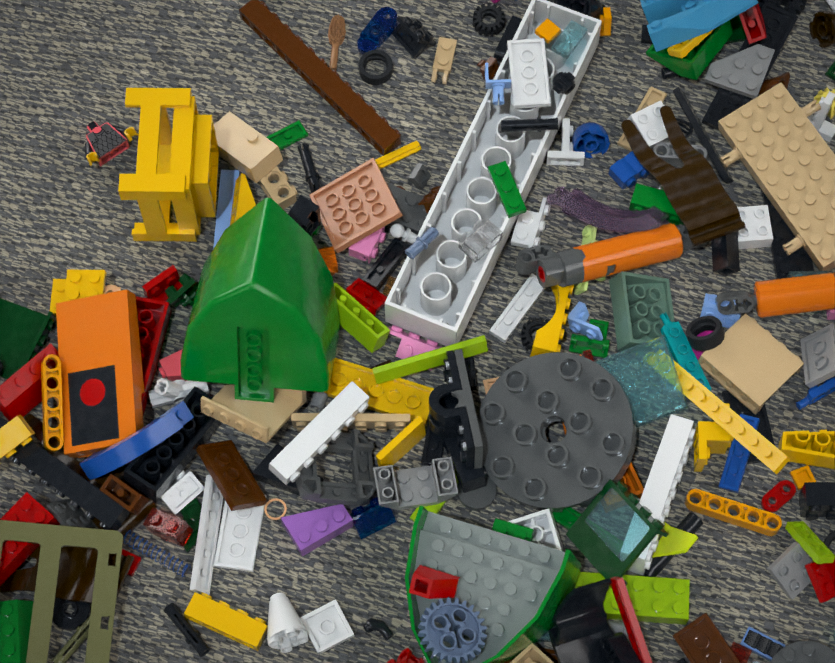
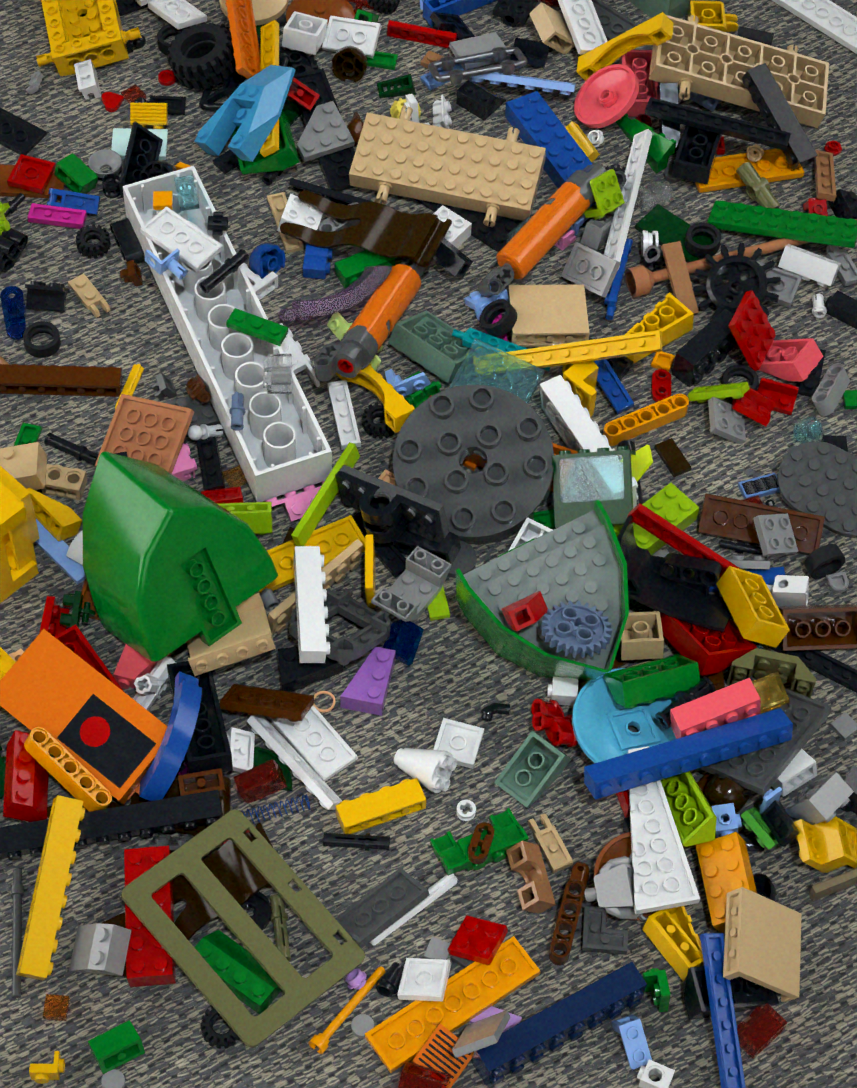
camera: 50 degrees left, 10 degrees down
(722, 560) = (672, 457): none -> dark brown tile

